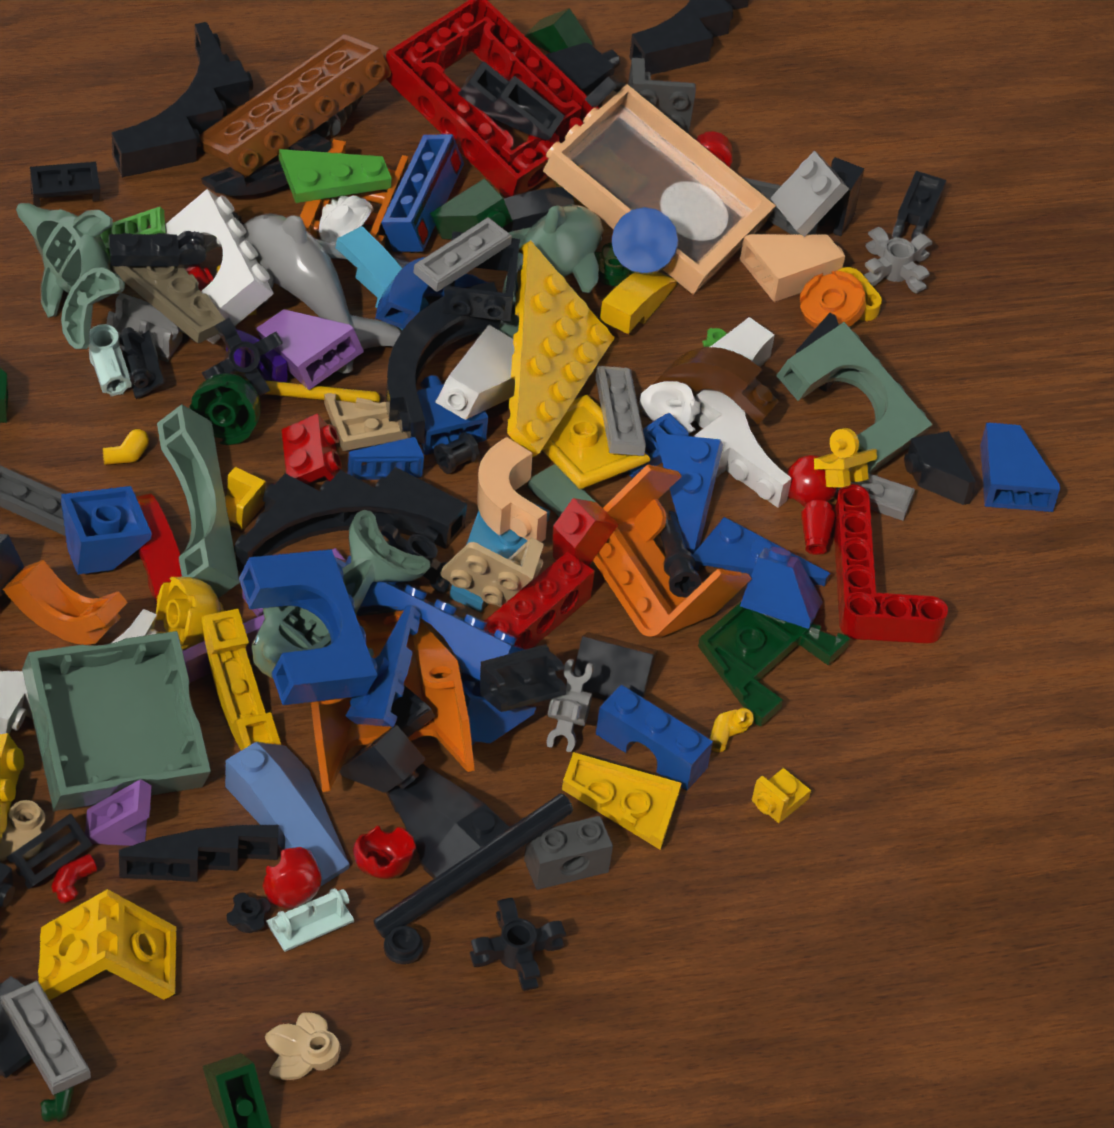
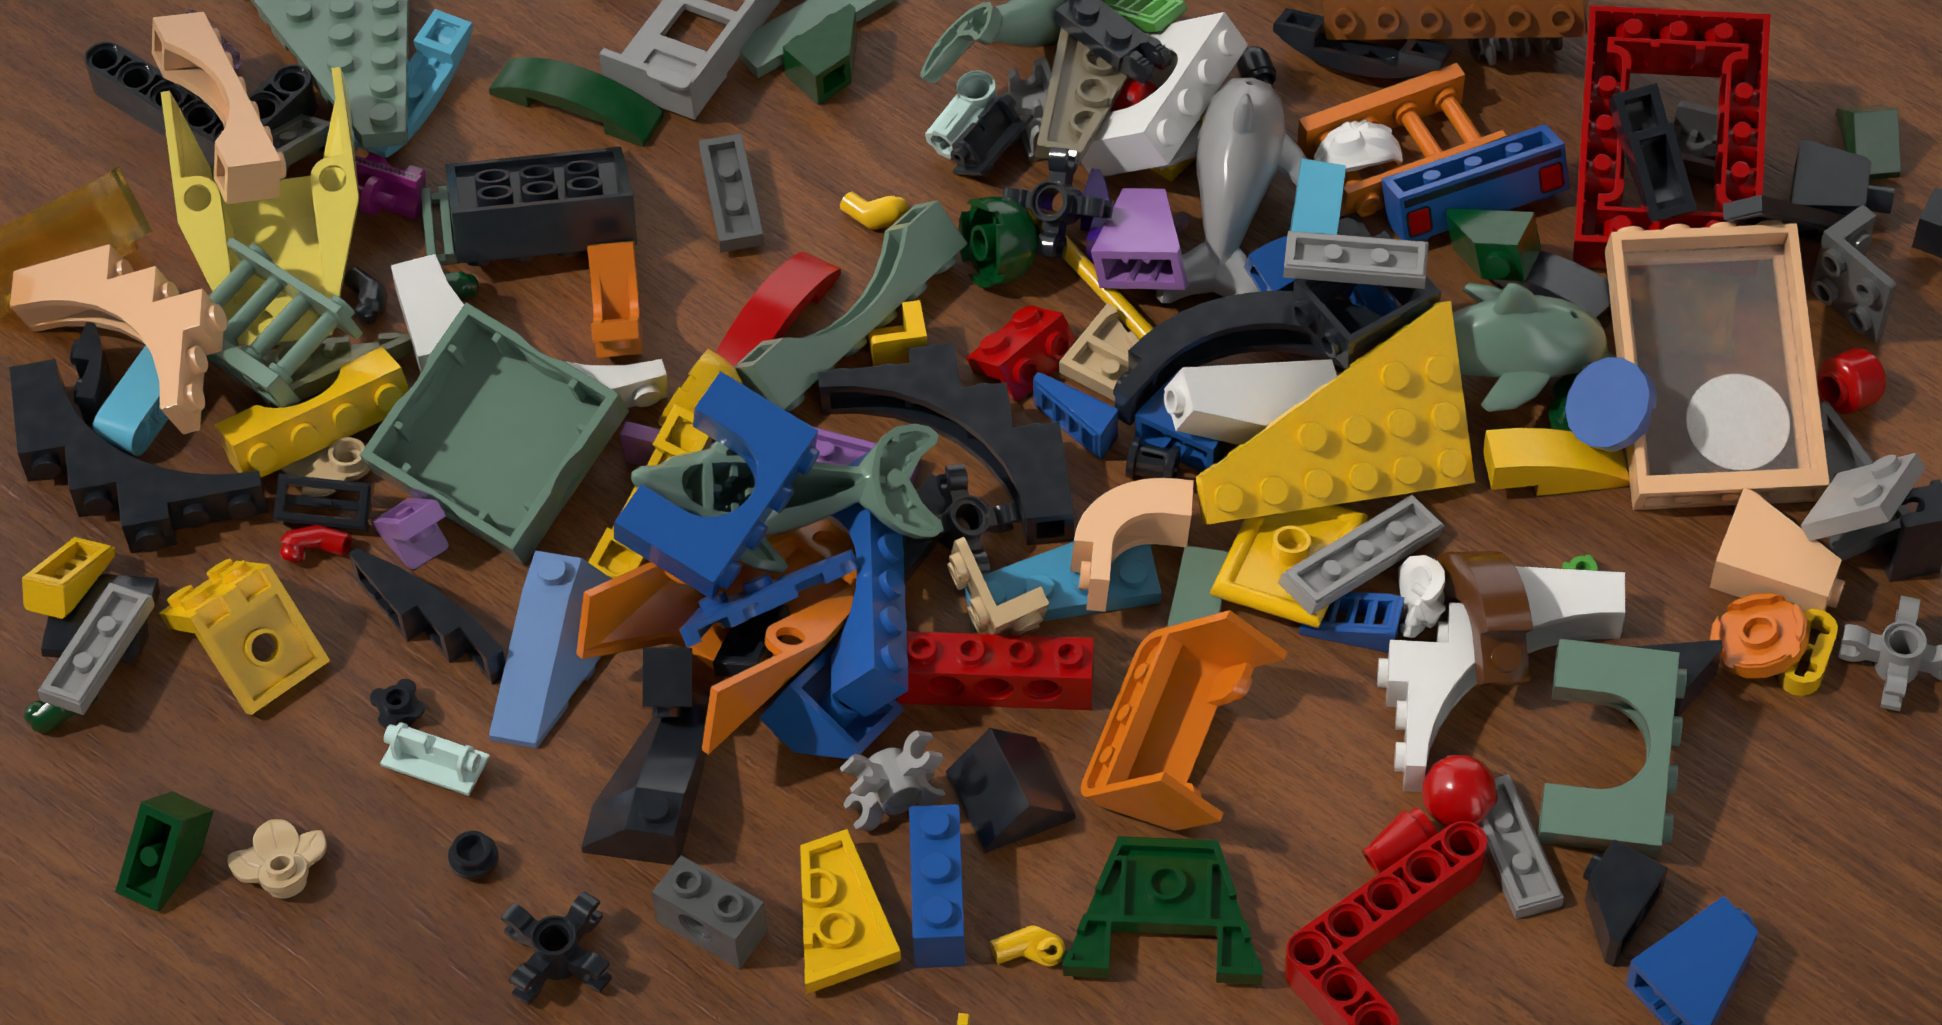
camera: 60 degrees right, 5 degrees up
(103, 528) = (736, 257): blue slope -> none
(293, 879) = (456, 705): red hair -> none
(331, 175) = (1399, 95): bright green wing -> none
(384, 853) = (561, 758): red hair -> none
(474, 865) = (604, 839): black axle -> none
(521, 678) = (854, 709): black hinge -> none
(582, 530) = (1130, 632): red slope -> none
(678, 562) = (1199, 747): black pin -> none
(698, 464) = (1335, 675): blue wing -> none
(738, 549) = (1295, 798): blue wing -> none
(782, 589) = (1255, 866): blue slope -> none
(845, 462) = (1499, 788): yellow hips -> none

